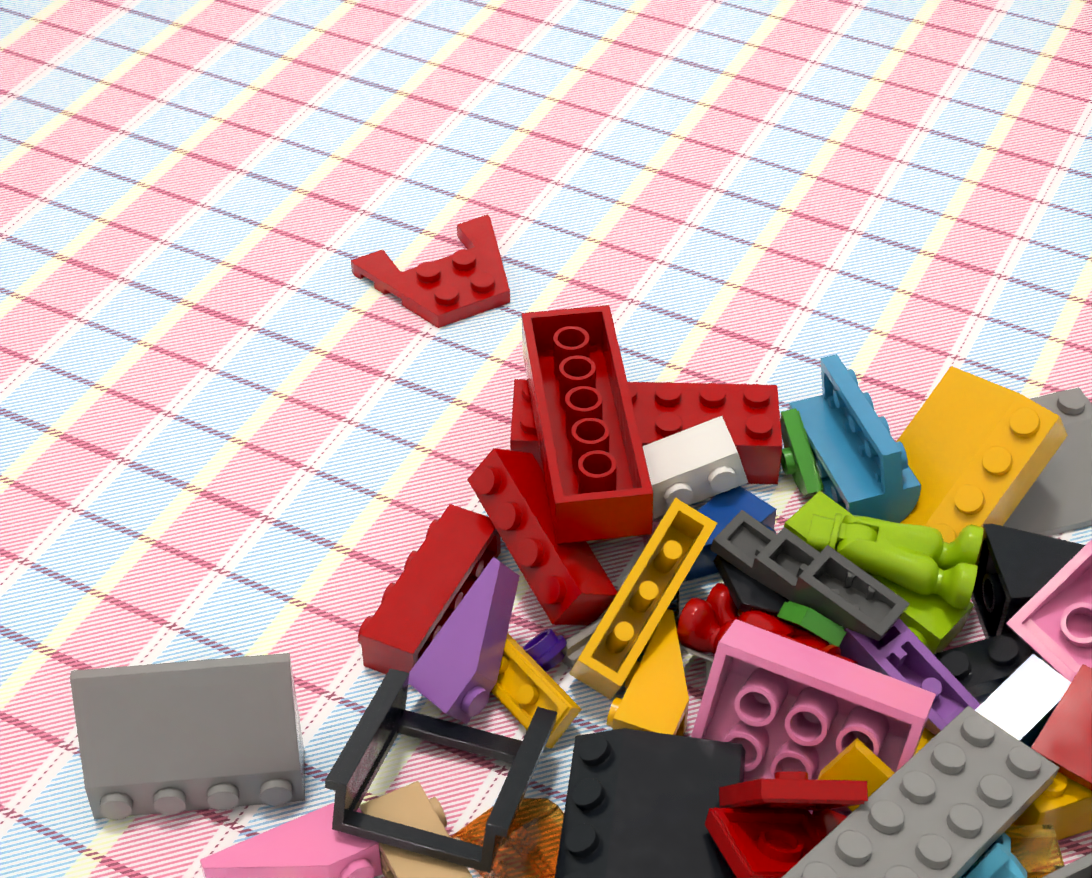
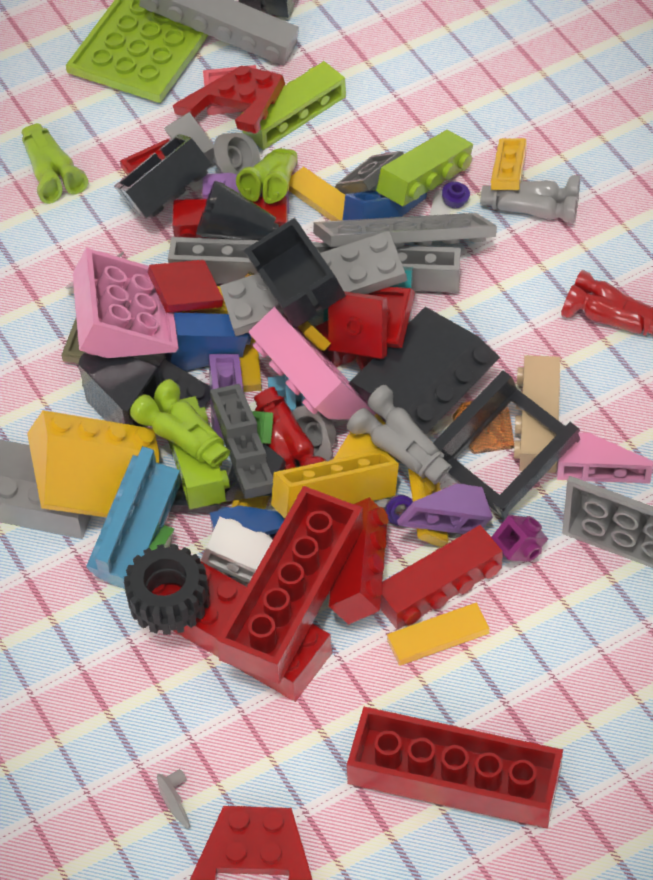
camera: 145 degrees left, 10 degrees up
(276, 400) = (455, 767): none -> red brick
(348, 674) = (520, 538): none -> magenta brick
(388, 545) = (438, 634): none -> yellow tile
(577, 282) = (171, 797): none -> light grey bar
(603, 690) = (399, 436): none -> light grey piece
(724, 360) = (172, 610): none -> black tyre
(910, 743) = (295, 272): none -> black piece

